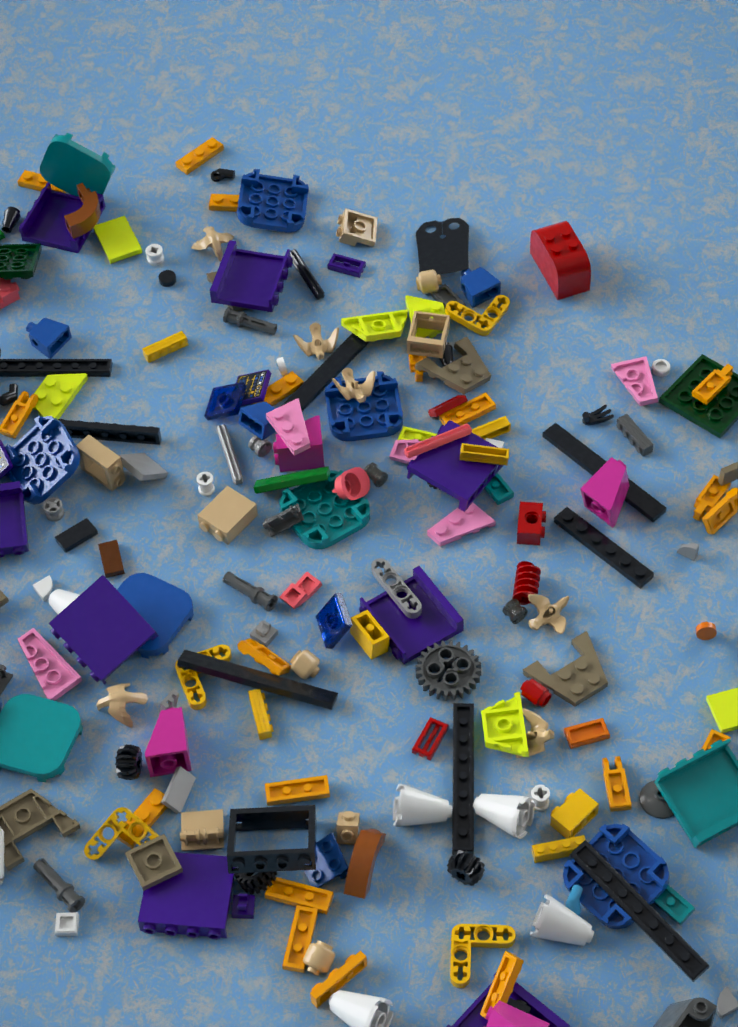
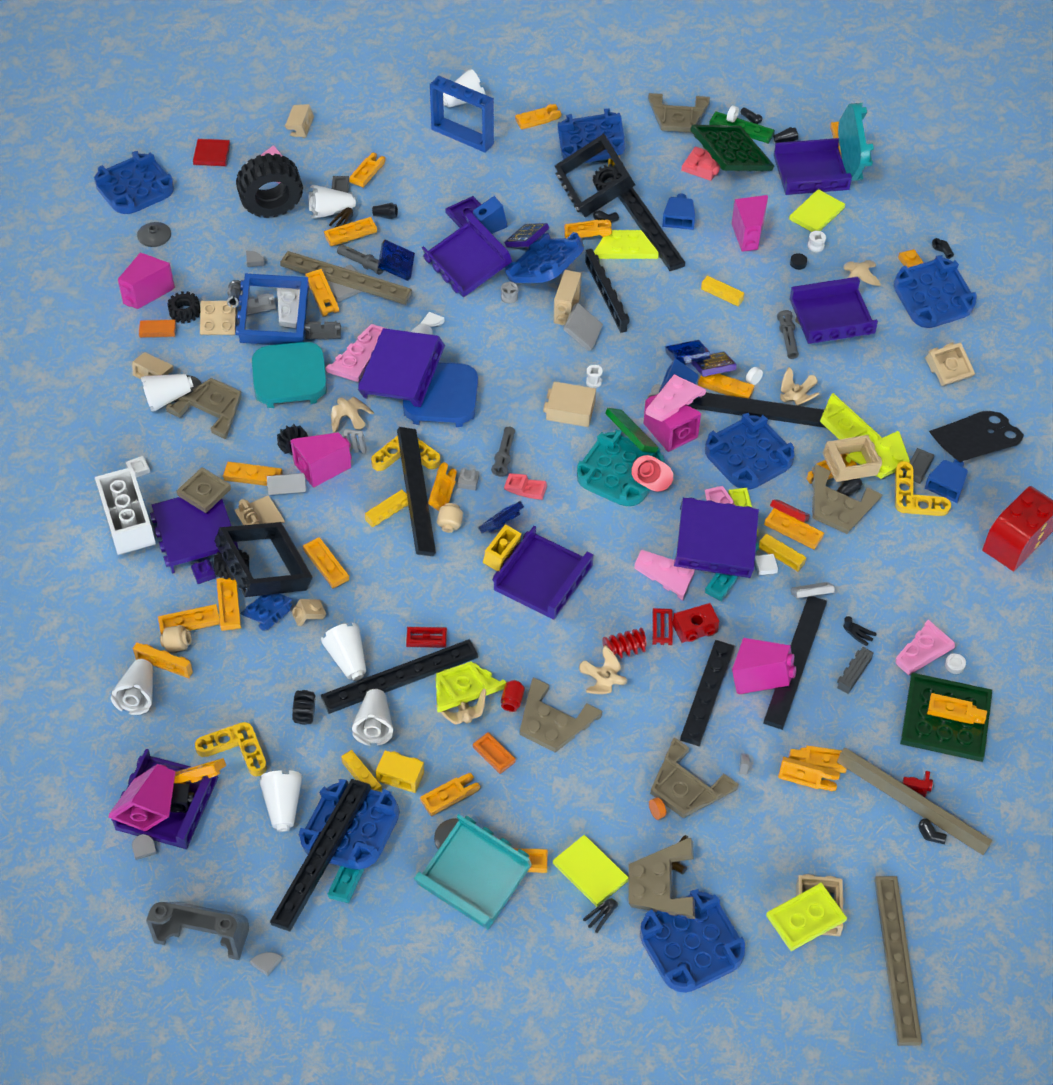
camera: 60 degrees right, 0 degrees up
(64, 891) = (163, 452): dark grey pin -> none
(76, 535) = (494, 318): black tile -> none
(87, 216) = (817, 175): dark orange arch -> none
(104, 288) = (749, 221): none -> dark pink slope
(111, 558) = (484, 349): reddish brown tile -> none
(118, 828) = (233, 457): yellow beam -> none
(141, 946) = (125, 510): none -> white brick
(199, 155) = (953, 224): light orange plate -> none
(230, 454) = (638, 380): light grey axle -> none
(283, 520) = (587, 442): dark grey hinge -> none
(307, 275) = (871, 352): black axle -> none
(347, 265) = (906, 386): dark purple tile -> none
(353, 389) = (760, 435): tan animal -> none
(362, 862) = (274, 628): dark orange arch -> none
(377, 476) = (678, 488): clear smoke bush -> none
(395, 588) = (563, 549): light grey beam -> none
(428, 281) = (924, 439): tan head -> none
(437, 441) = (725, 507): coral axle -> none
(462, 678) = (496, 614): dark grey gear -> none
(484, 454) = (733, 548): yellow piece -> none
(515, 611) = (591, 647): clear smoke wheel -> none
(516, 553) = (662, 639): none -> red tile
(540, 427) = (812, 589): none -> light grey tile
(542, 792) = (401, 741): white bush -> none
(573, 901) = (309, 801): dark azure arm -> none
(690, 606) = (681, 789): none -> dark tan wing

